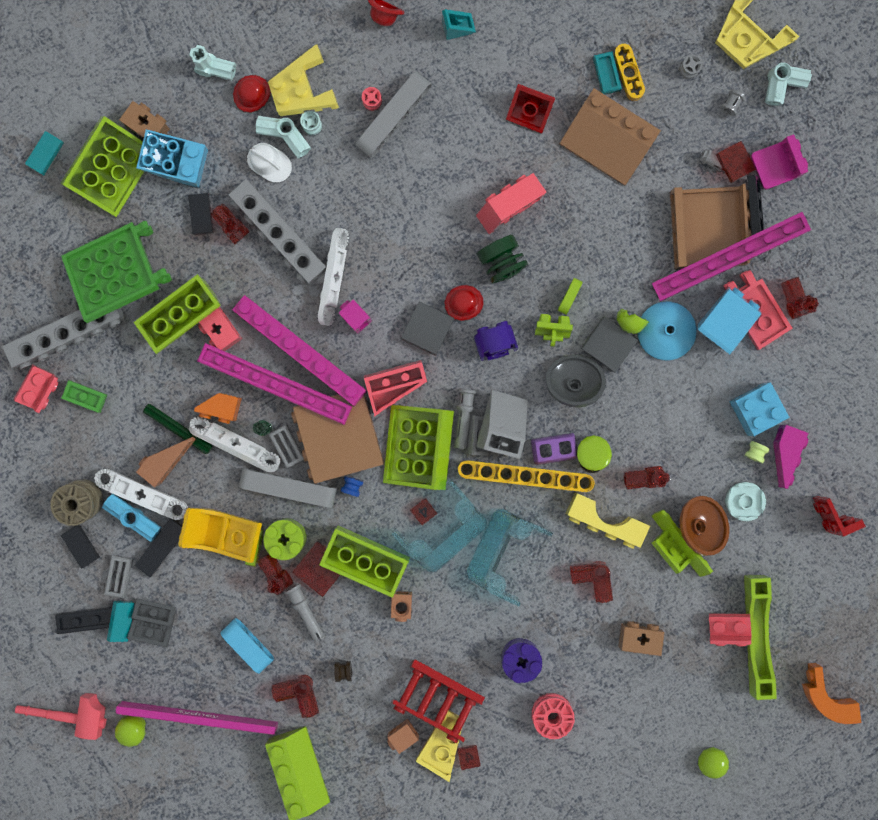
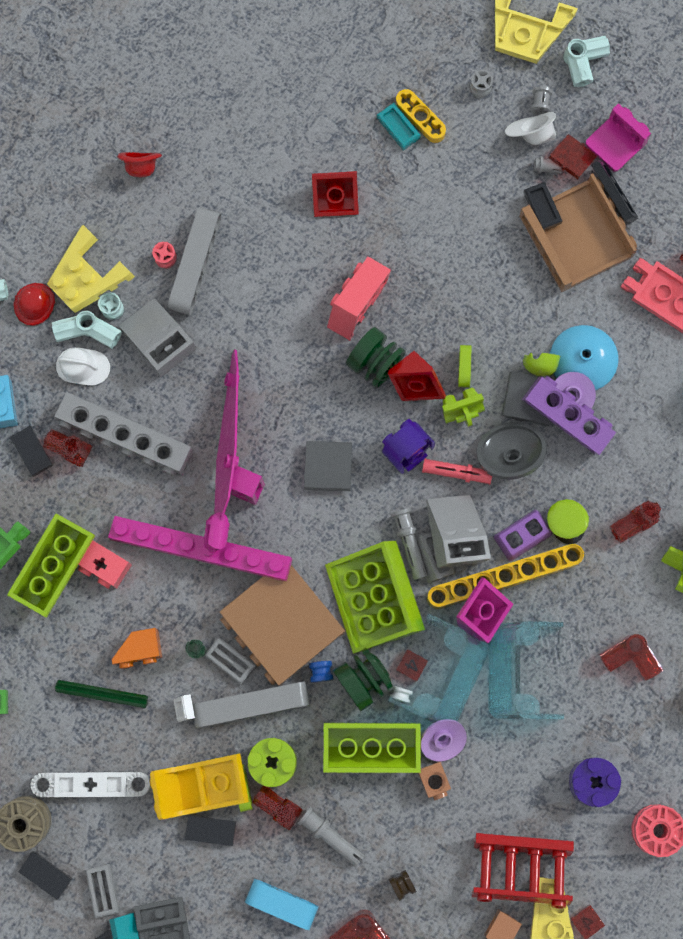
camera: 20 degrees left, 10 degrees down
(121, 510) = (76, 811): medium azure piece -> none
(158, 466) = (98, 741): nougat slope -> none
(159, 548) = (136, 836): black tile -> none
(217, 567) = (210, 830): none -> black tile
(224, 438) = (184, 682): white piece -> none
(235, 468) = (184, 708): none -> white tile
(274, 383) = (188, 594): dark pink tile -> none
(313, 574) = (321, 787): clear red plate -> none
(319, 339) = (218, 525): none -> dark pink wing
(333, 276) = (202, 451): white piece -> none
(337, 165) = (158, 337): none -> light grey slope
(380, 507) = (363, 679): none -> dark green wheel
(393, 384) = (318, 539): coral wedge -> none
(405, 530) = (401, 694): none -> white bush
(421, 579) = (443, 740): none -> lavender dish
(457, 24) = (220, 143): teal slope -> none
(463, 302) = (355, 422): red hat -> none
(496, 497) = (483, 611): none -> dark pink slope
(506, 363) = (429, 466): none -> coral pin
(525, 291) = (415, 379): none -> red slope
(609, 137) = (430, 187): medium nougat slope -> none
(629, 530) = (585, 586): light yellow arch -> none
(644, 401) = (594, 441): none -> medium lavender brick
(653, 360) = (580, 385): none -> lavender dish
(692, 192) = (543, 205): none -> black tile
(715, 125) = (534, 129): none -> white piece
(729, 319) = (643, 315): medium azure slope -> none
(731, 256) = (613, 252): dark pink plate -> none

